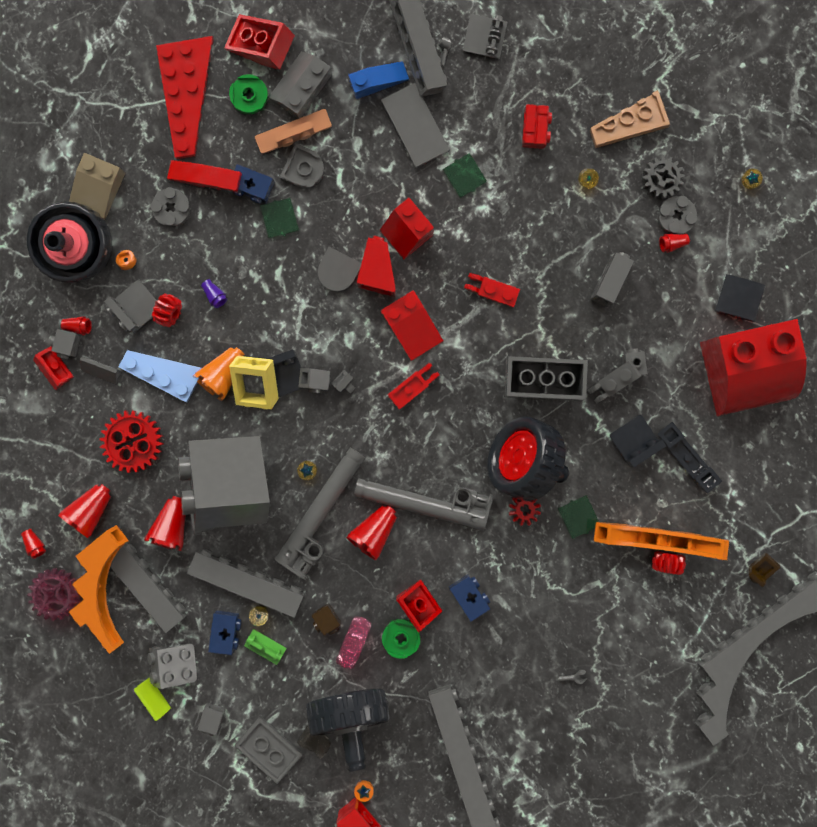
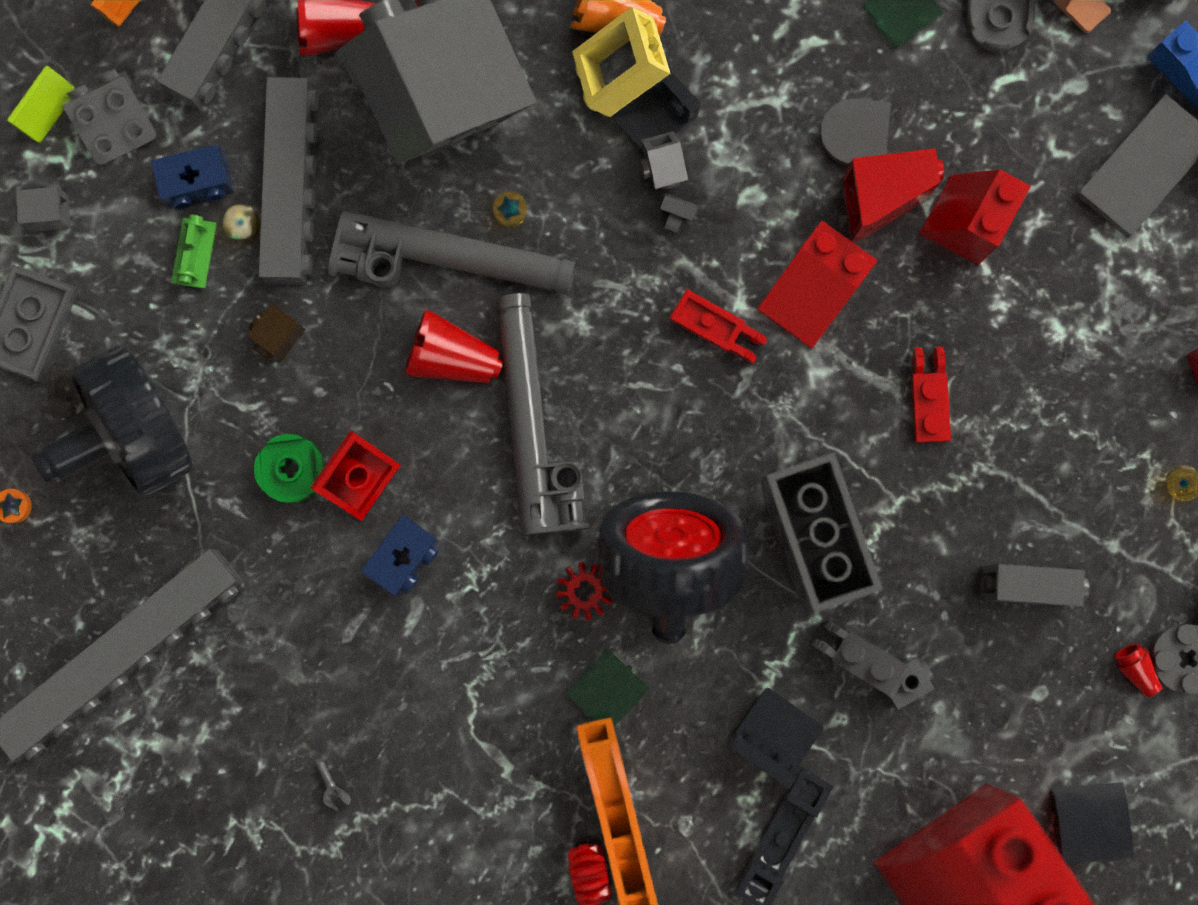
camera: 75 degrees right, 5 degrees down
(353, 642) = (252, 389): clear pink gear -> none
(464, 175) = (1099, 278): clear green piece -> none

